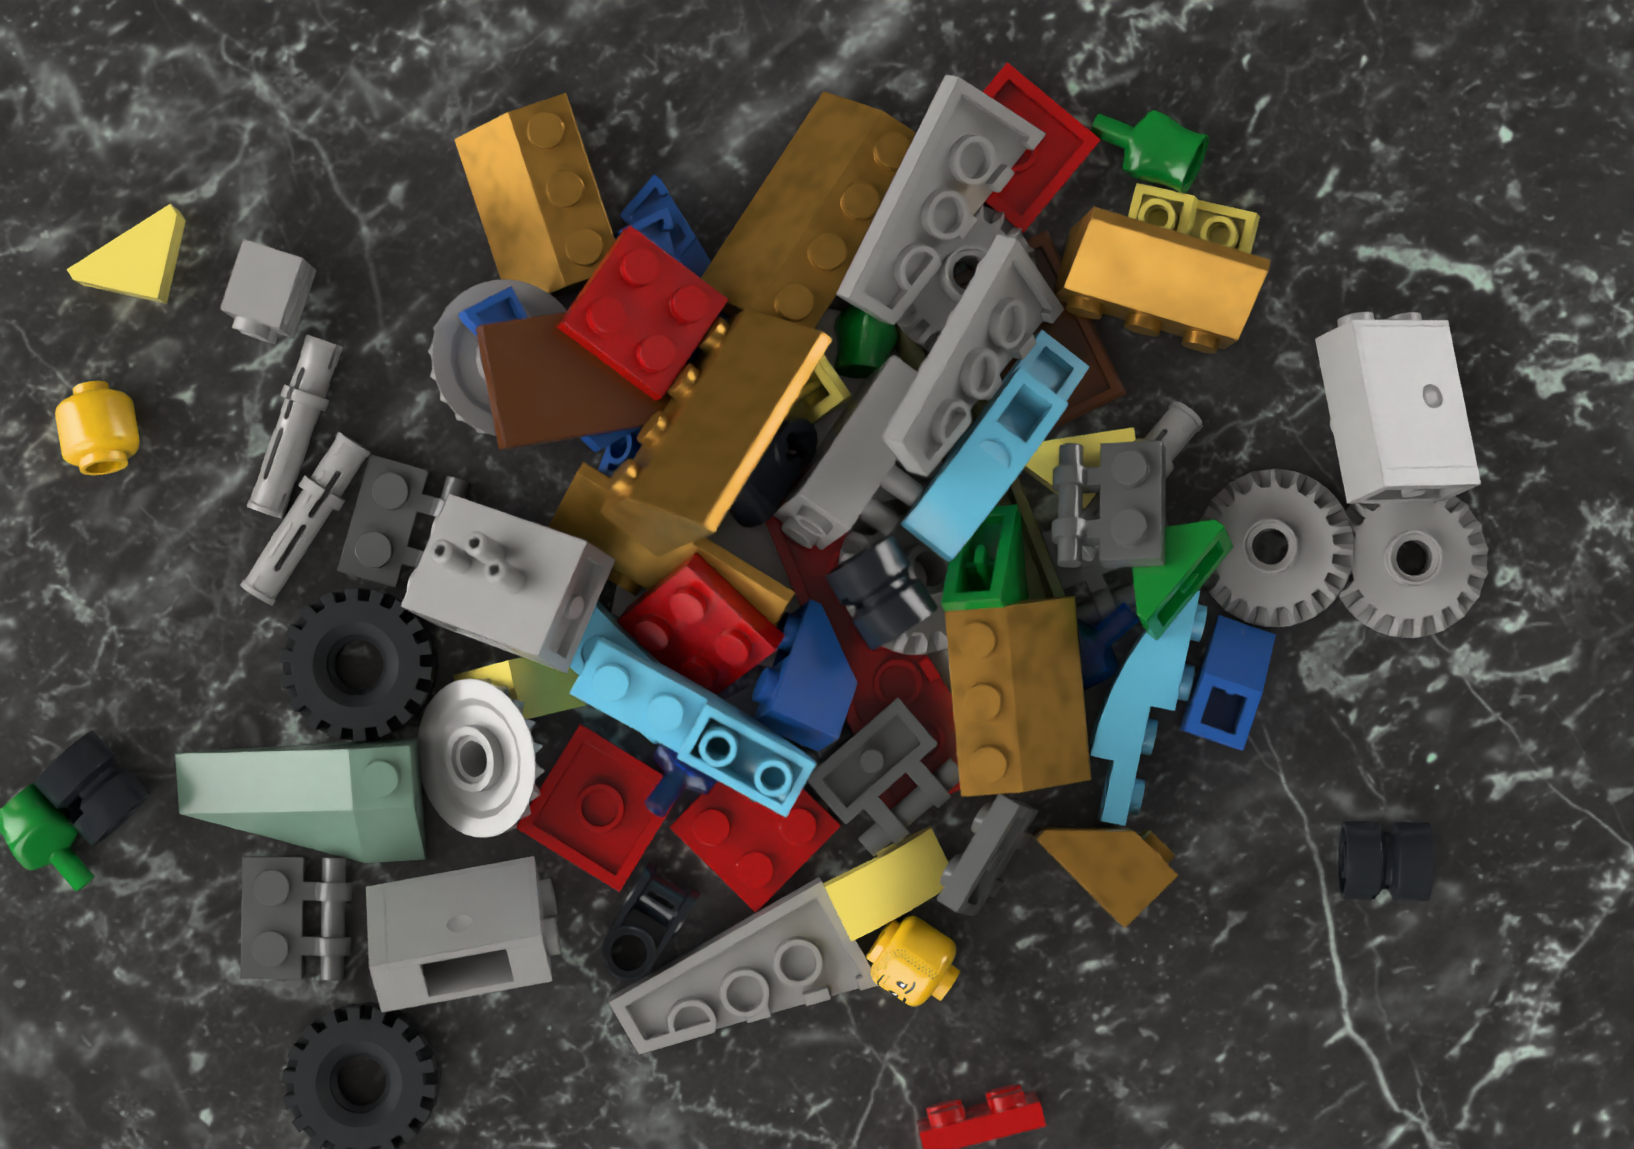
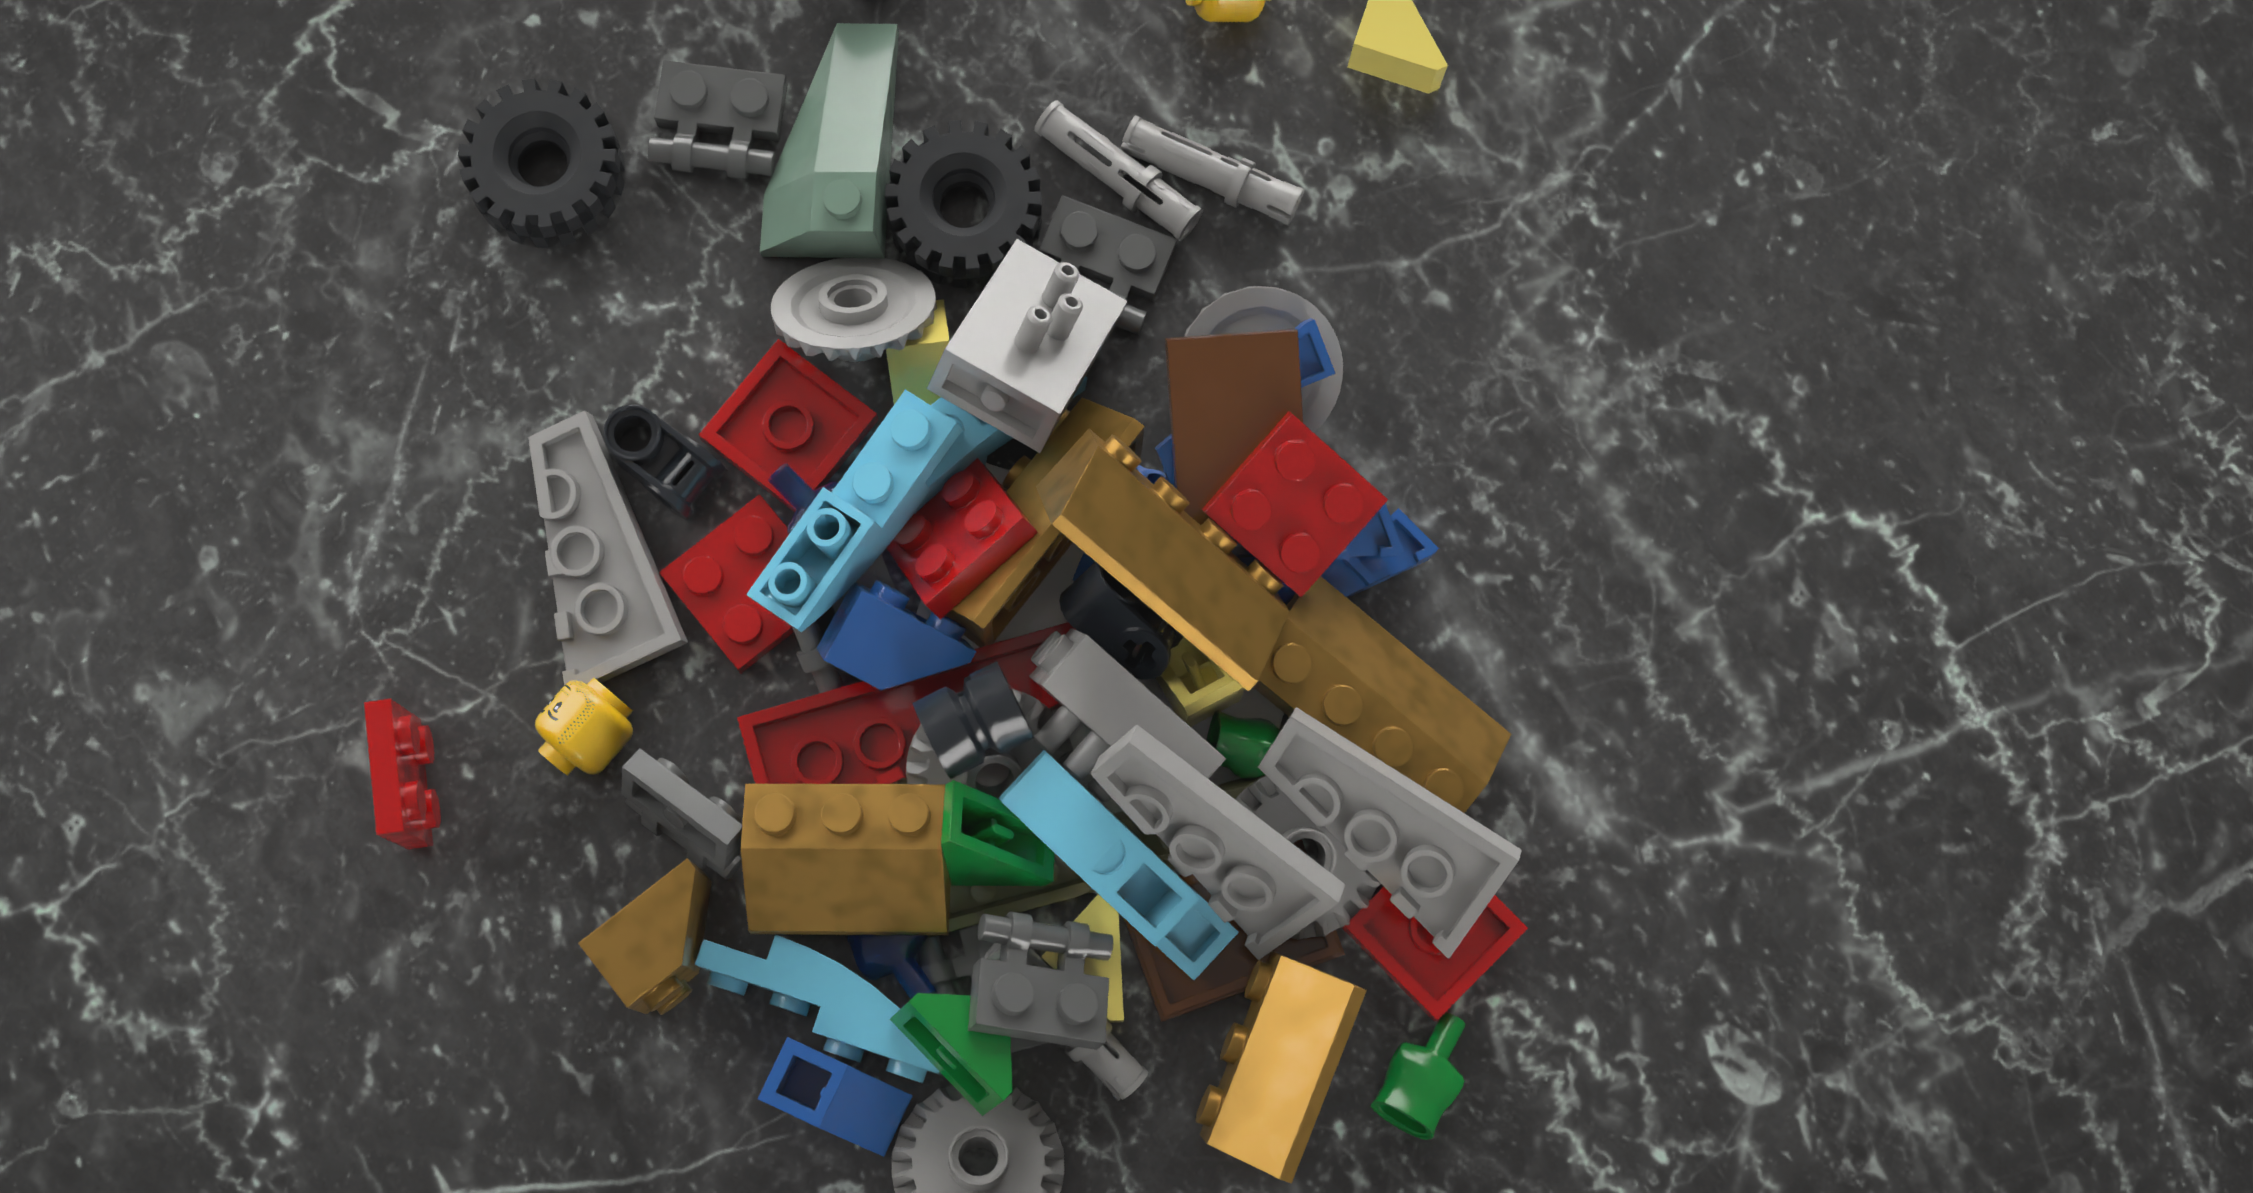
camera: 90 degrees right, 10 degrees down
(267, 292) = (1350, 147): light grey brick -> none
(461, 933) = (674, 265): light grey piece -> none
(538, 196) = (1430, 431): pearl gold slope -> none
(872, 763) = (797, 702): dark grey plate -> none
(888, 884) = (668, 708): light yellow slope -> none
(1195, 217) = (1342, 1116): light yellow slope -> none

